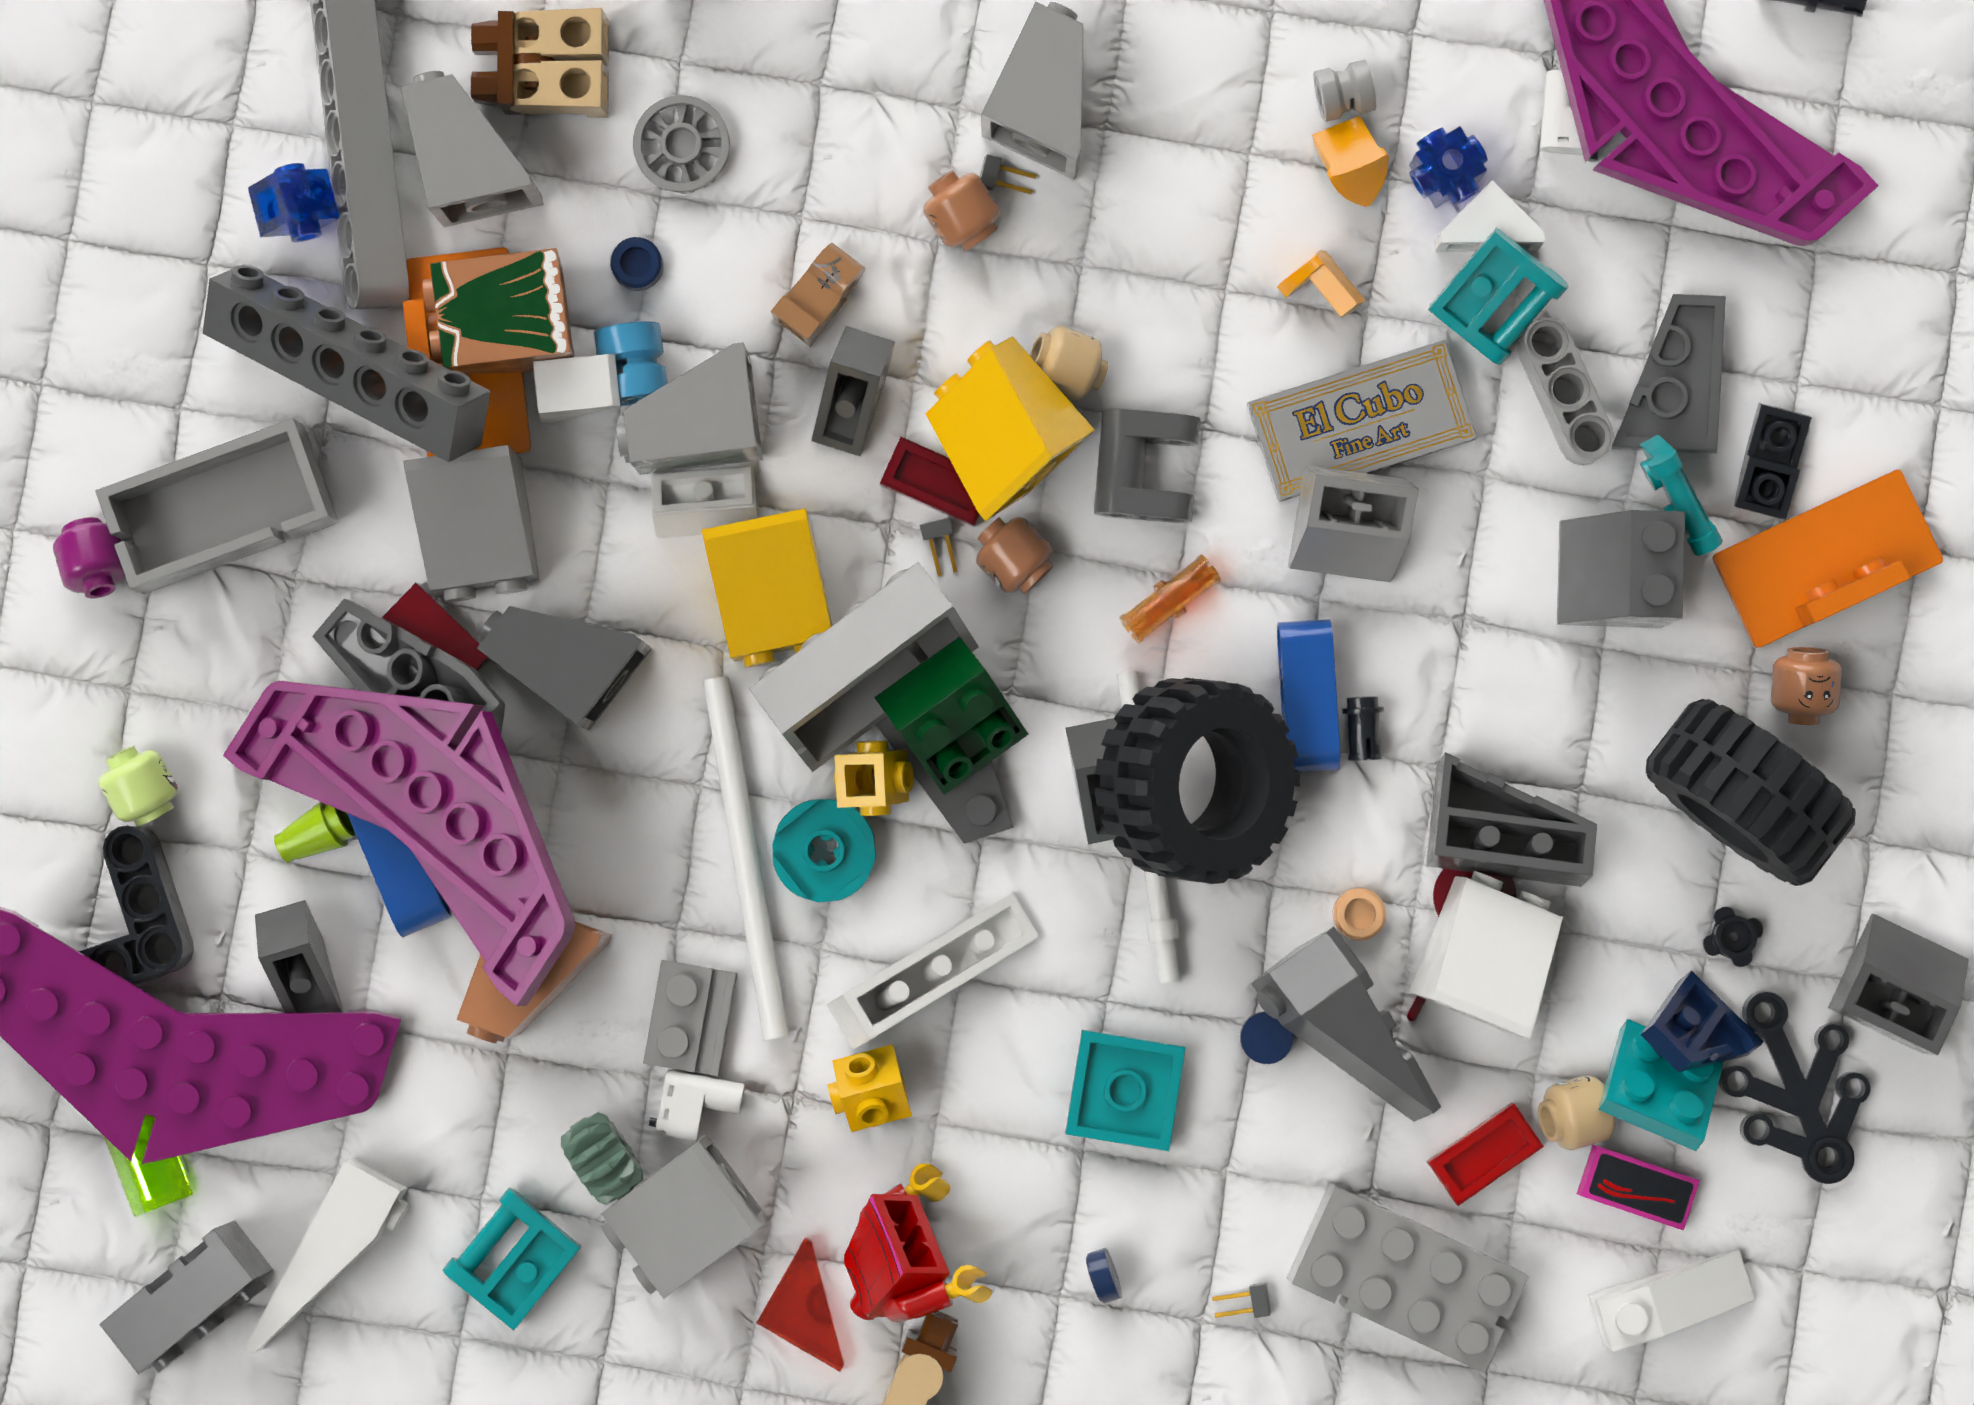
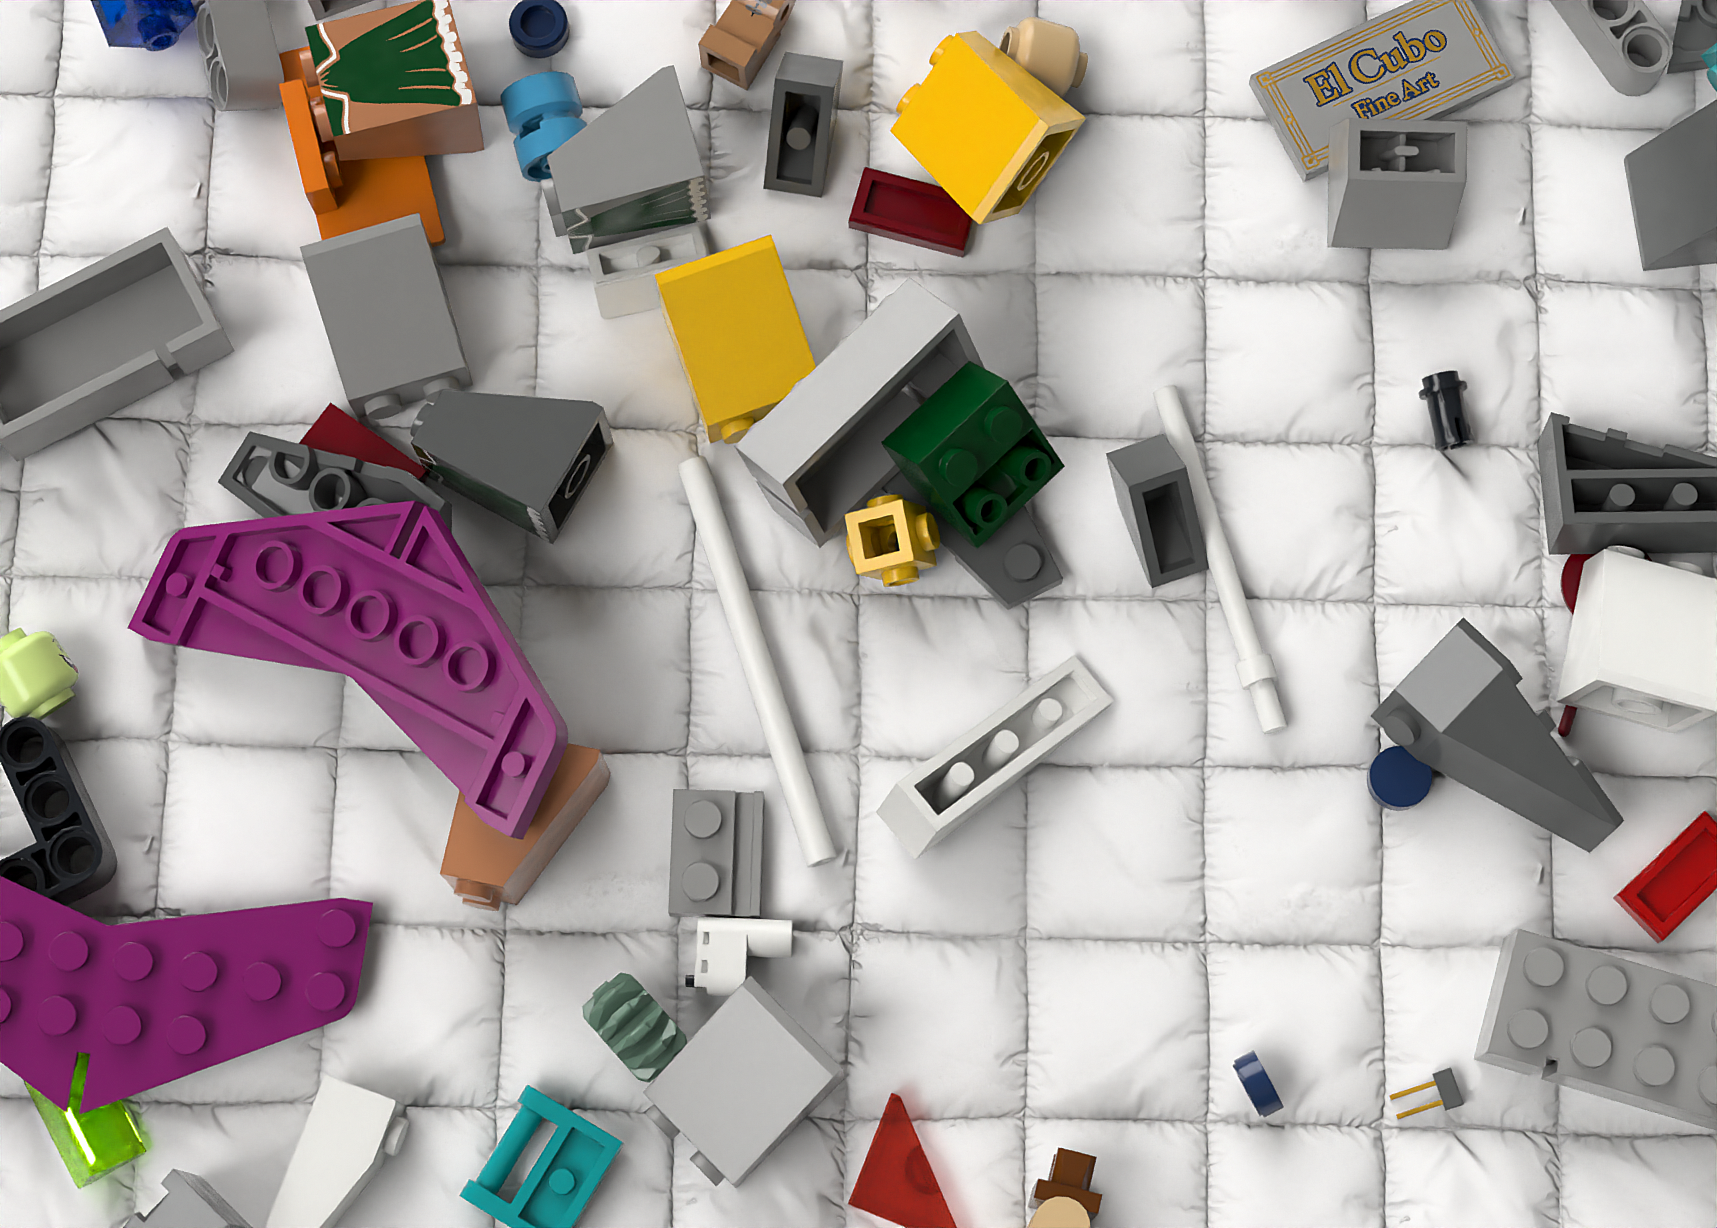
camera: 10 degrees left, 10 degrees down
(296, 959) = (239, 847): dark grey slope -> none
(314, 832) = (246, 699): lime cone -> none
(346, 362) = (223, 153): dark grey brick -> none
(402, 881) = (353, 731): blue beam -> none
(575, 387) = (485, 155): white slope -> none
(820, 880) = (846, 601): teal plate -> none
(869, 1088) = (943, 899): yellow brick -> none
(897, 1257) = (1012, 1096): red torso -> none
(936, 529) = (921, 263): dark grey piece -> none
(1014, 554) = (1015, 275): nougat head -> none
(1122, 464) = (1120, 164): dark grey connector -> none
(1125, 1090) = (1245, 861): teal plate -> none
(1170, 598) = (1200, 299): clear orange pin -> none
(1249, 792) = (1216, 488): black tyre -> none
(1309, 692) = (1378, 382): blue beam -> none
(1359, 914) = (1486, 613): light nougat tile -> none

